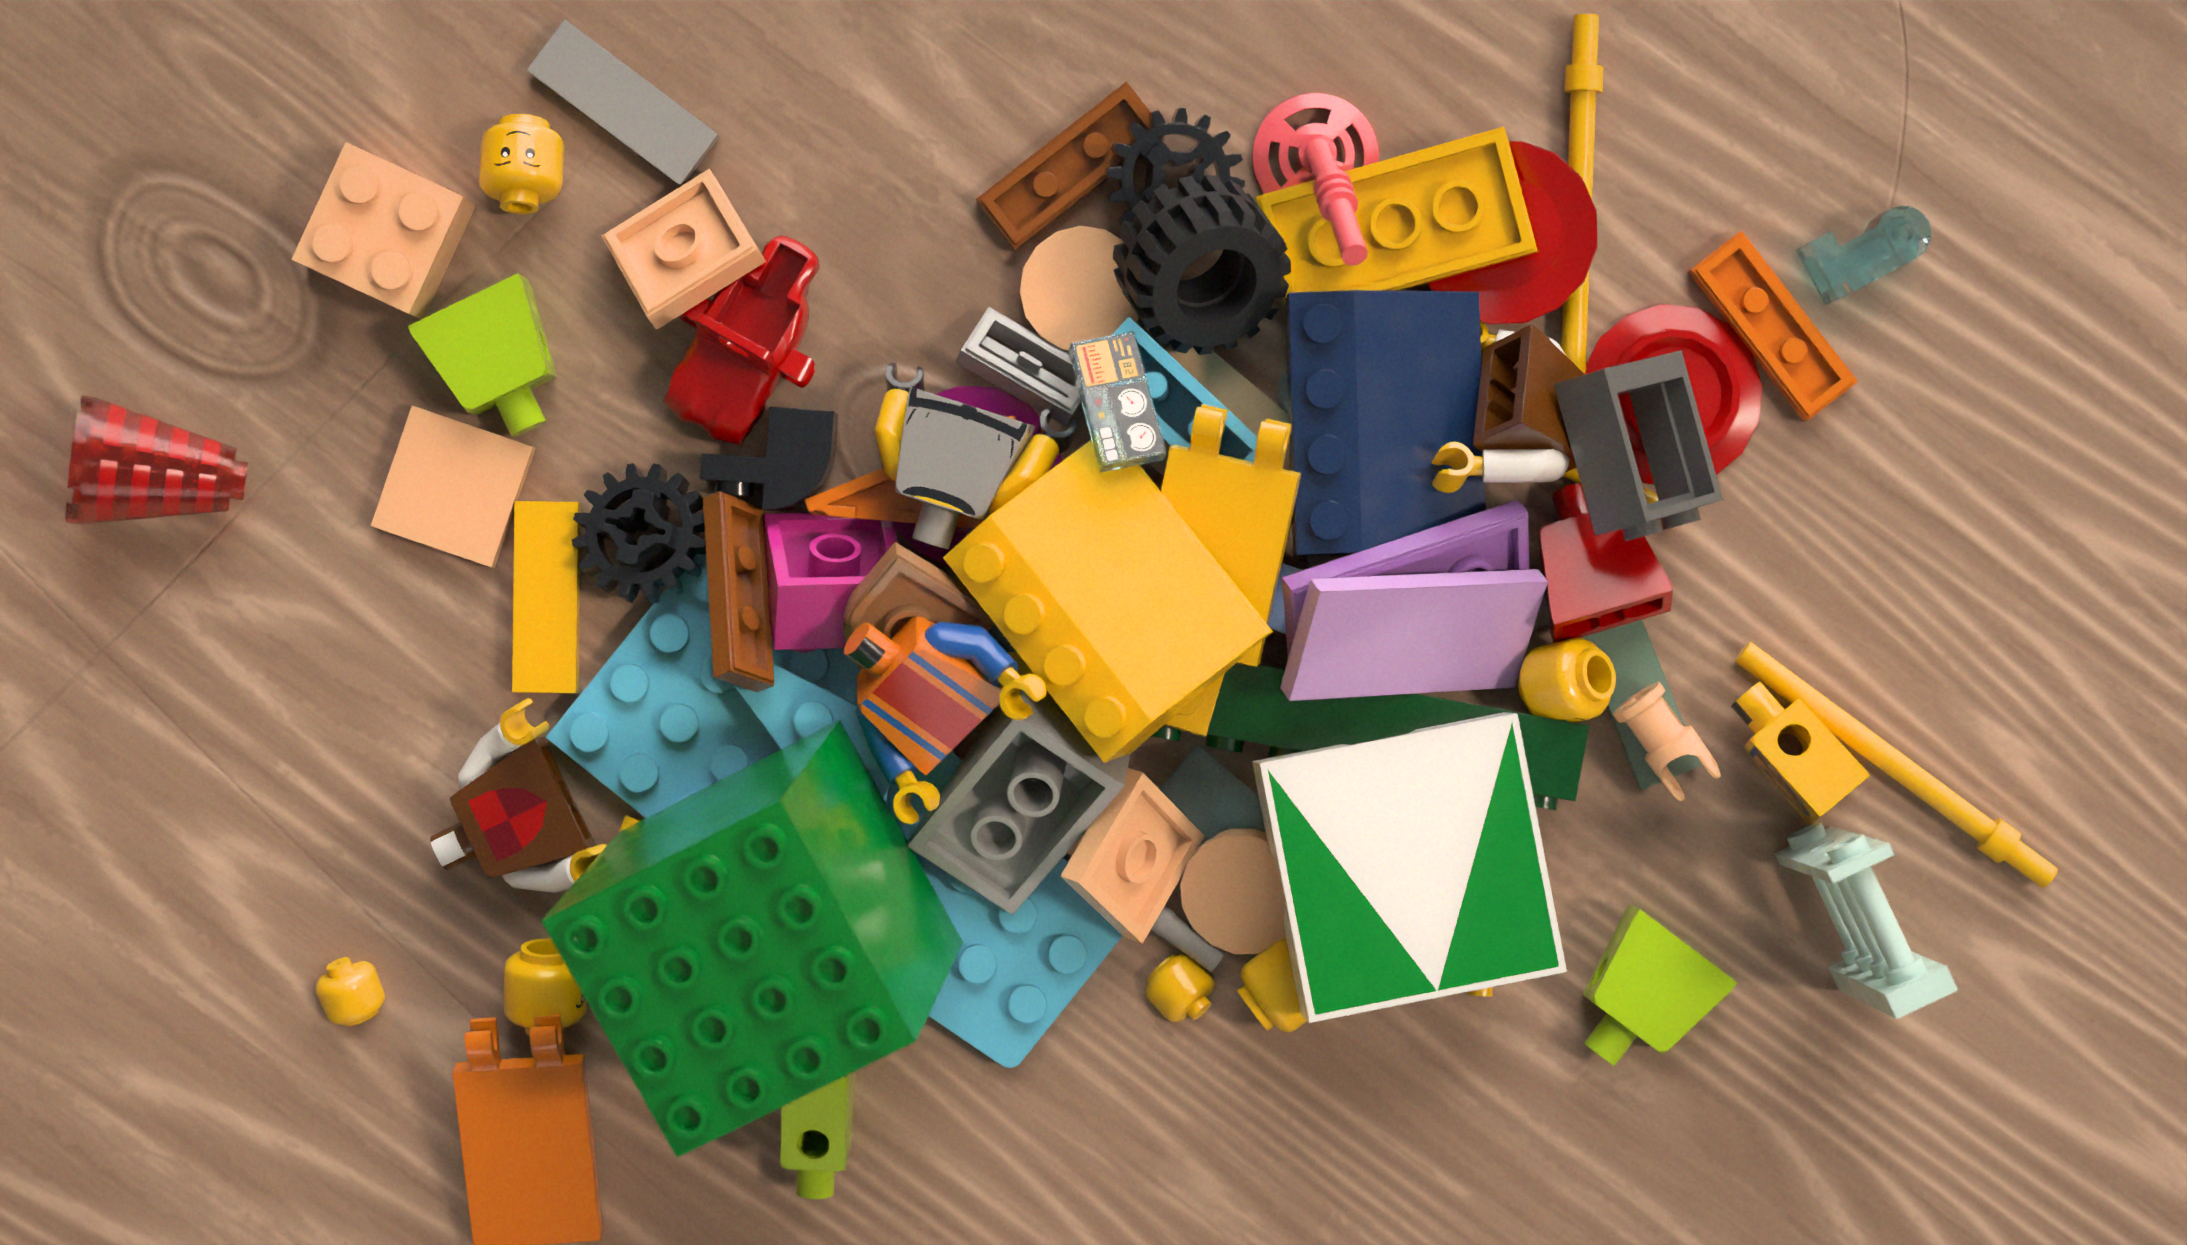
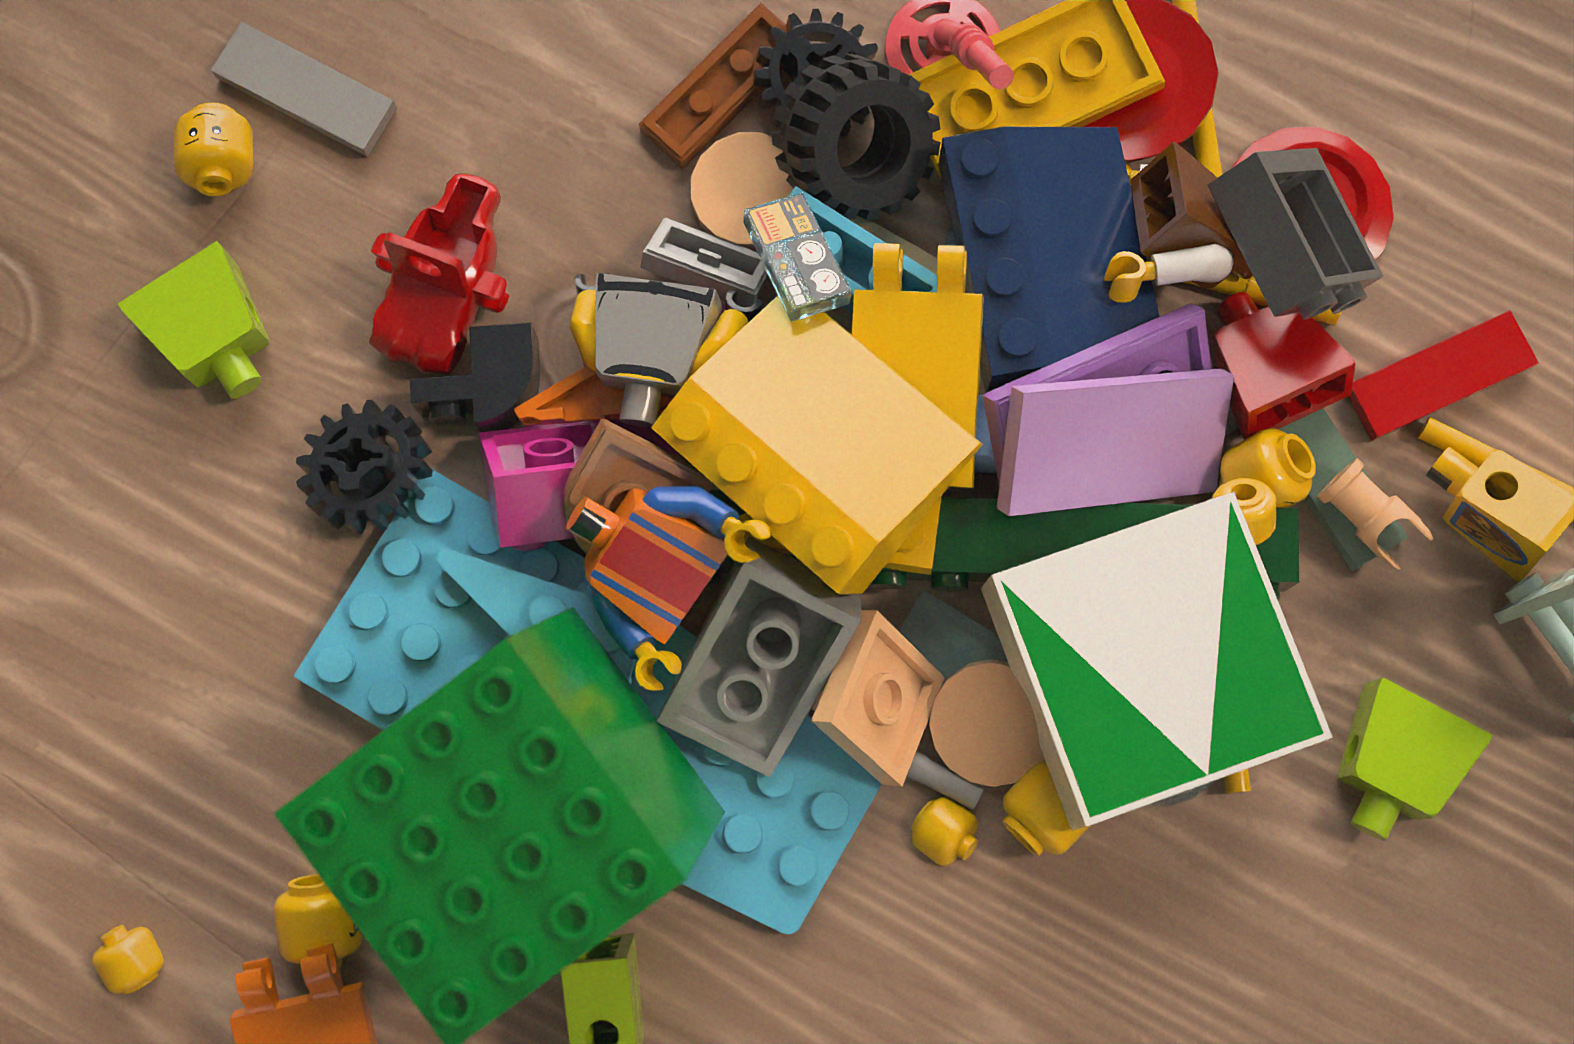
camera: 10 degrees left, 10 degrees down
(384, 231) = (89, 225): light nougat brick -> none
(453, 486) = (181, 454): light nougat tile -> none
(517, 811) = (262, 740): torso -> none
(546, 598) = (280, 547): yellow tile -> none
(683, 249) = (370, 198): light nougat tile -> none
(738, 592) = (460, 503): dark orange tile -> none
(1538, 722) = (1256, 504): none -> yellow piece
(1772, 600) = (1441, 375): none -> red tile
(1773, 326) = (1389, 132): orange tile -> none
(1884, 246) = (1444, 67): clear light blue leg -> none

